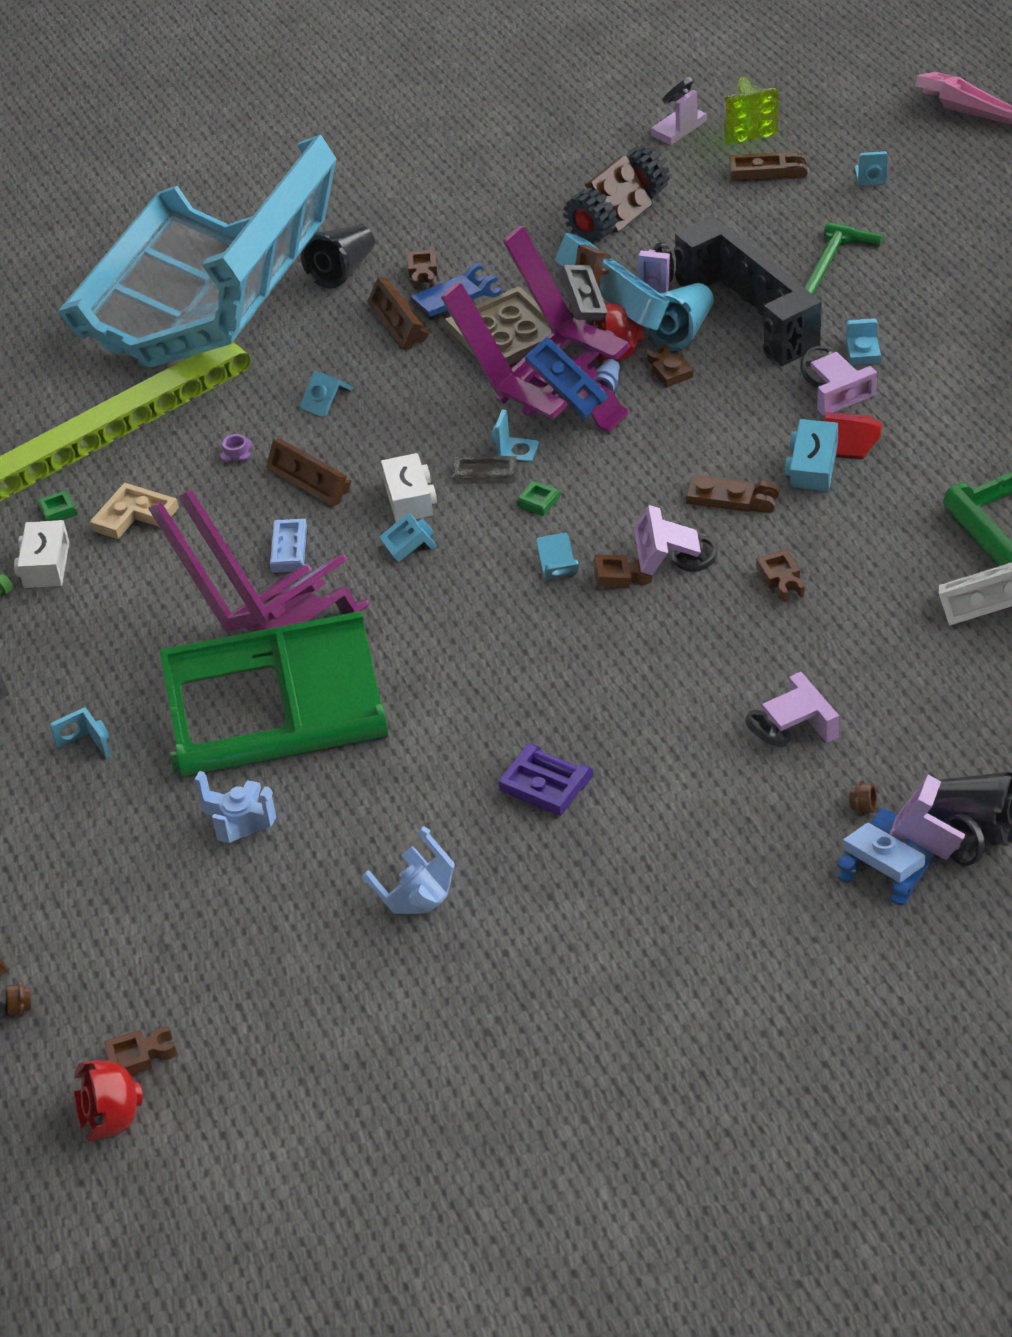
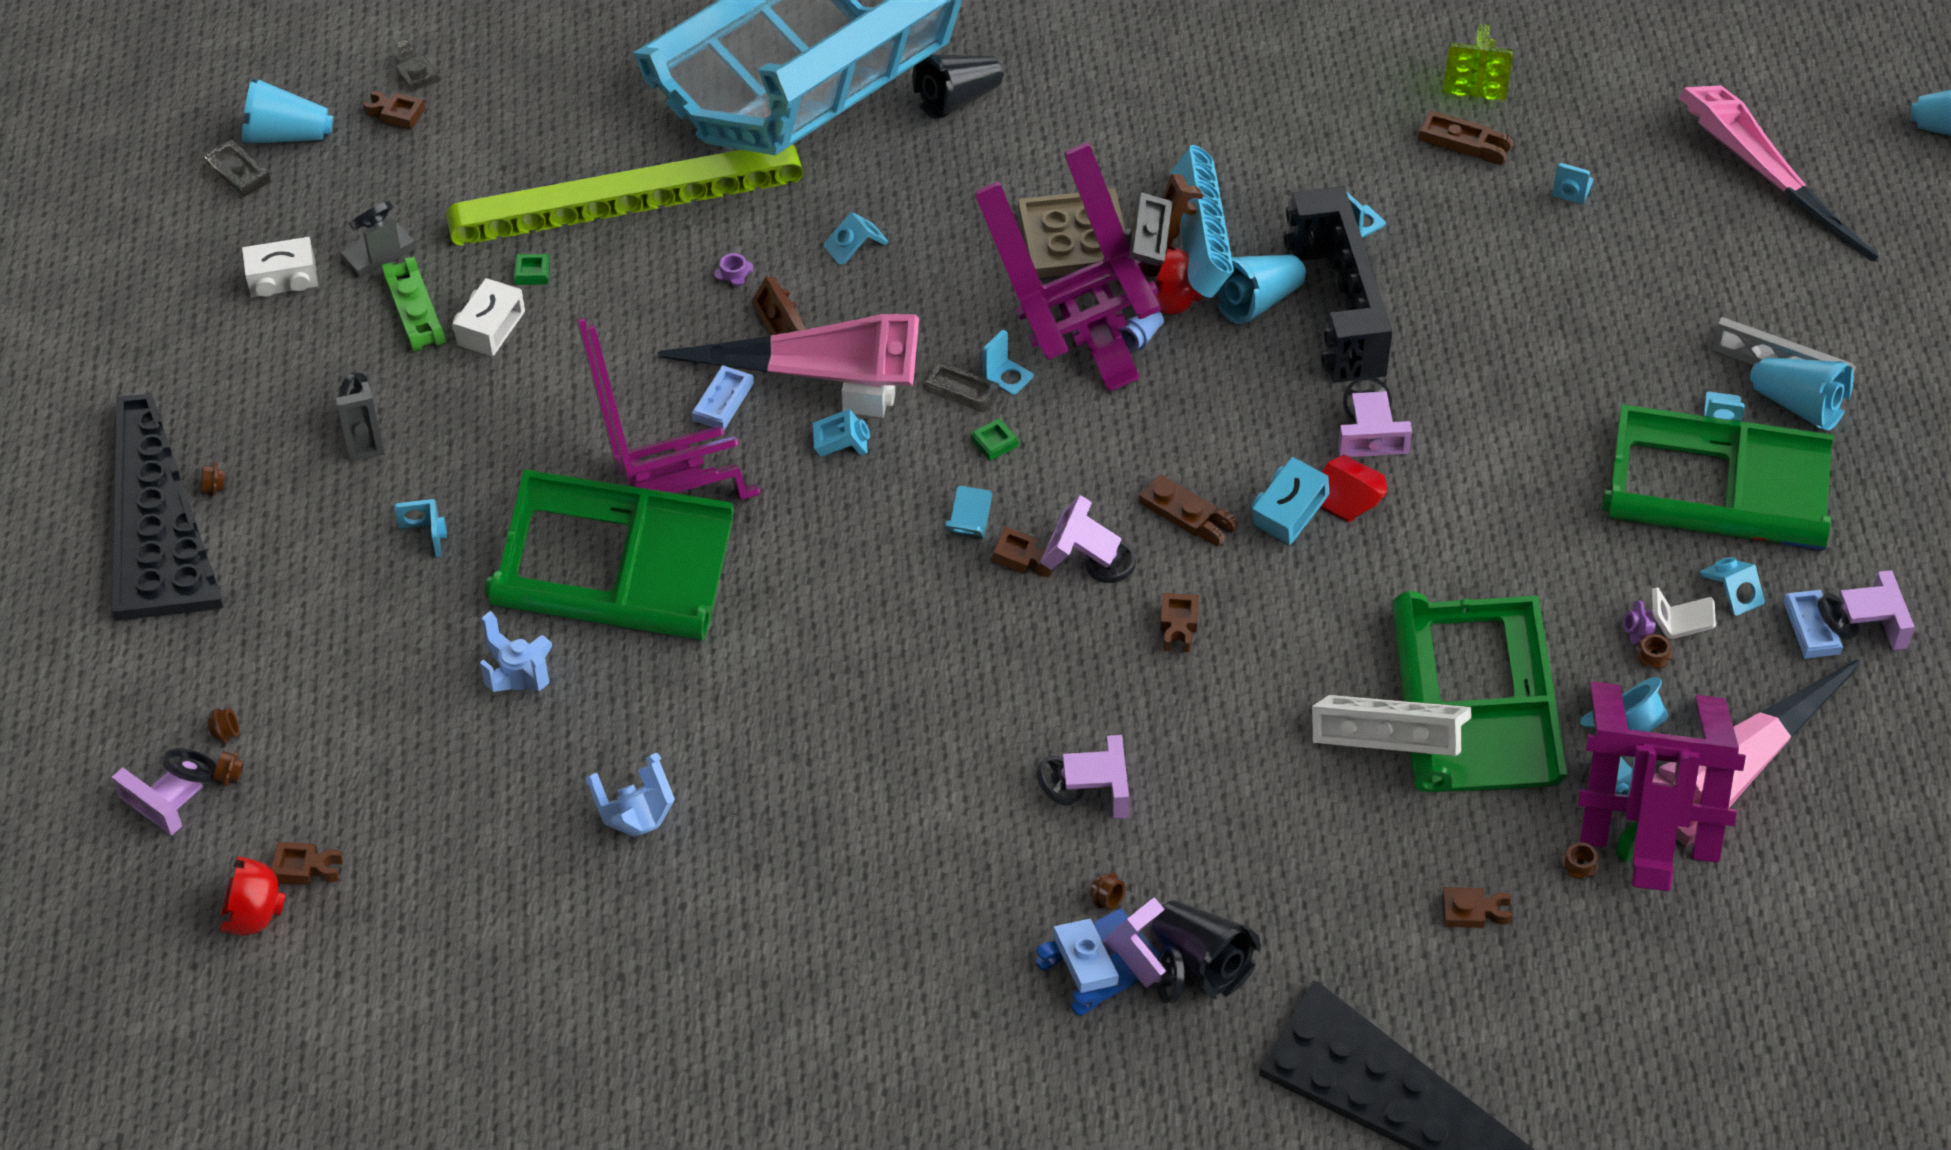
camera: 20 degrees right, 5 degrees up
(128, 505) = (598, 293): tan plate -> none
(392, 464) = (857, 351): none -> bright pink plate
(396, 314) = (973, 169): reddish brown plate -> none
(422, 267) = (1033, 126): reddish brown plate -> none
(431, 301) = (1037, 172): blue flag -> none
(540, 785) = (811, 752): dark purple plate -> none
(565, 377) = (1081, 318): blue plate -> none
(616, 194) = (1277, 116): plate -> none
(656, 267) = (1253, 224): lavender piece -> none
(669, 368) = (1215, 340): reddish brown plate -> none
(686, 113) = (1411, 45): lavender piece -> none
(836, 235) = (1486, 248): green bar -> none
(862, 342) = (1429, 388): medium azure bracket -> none

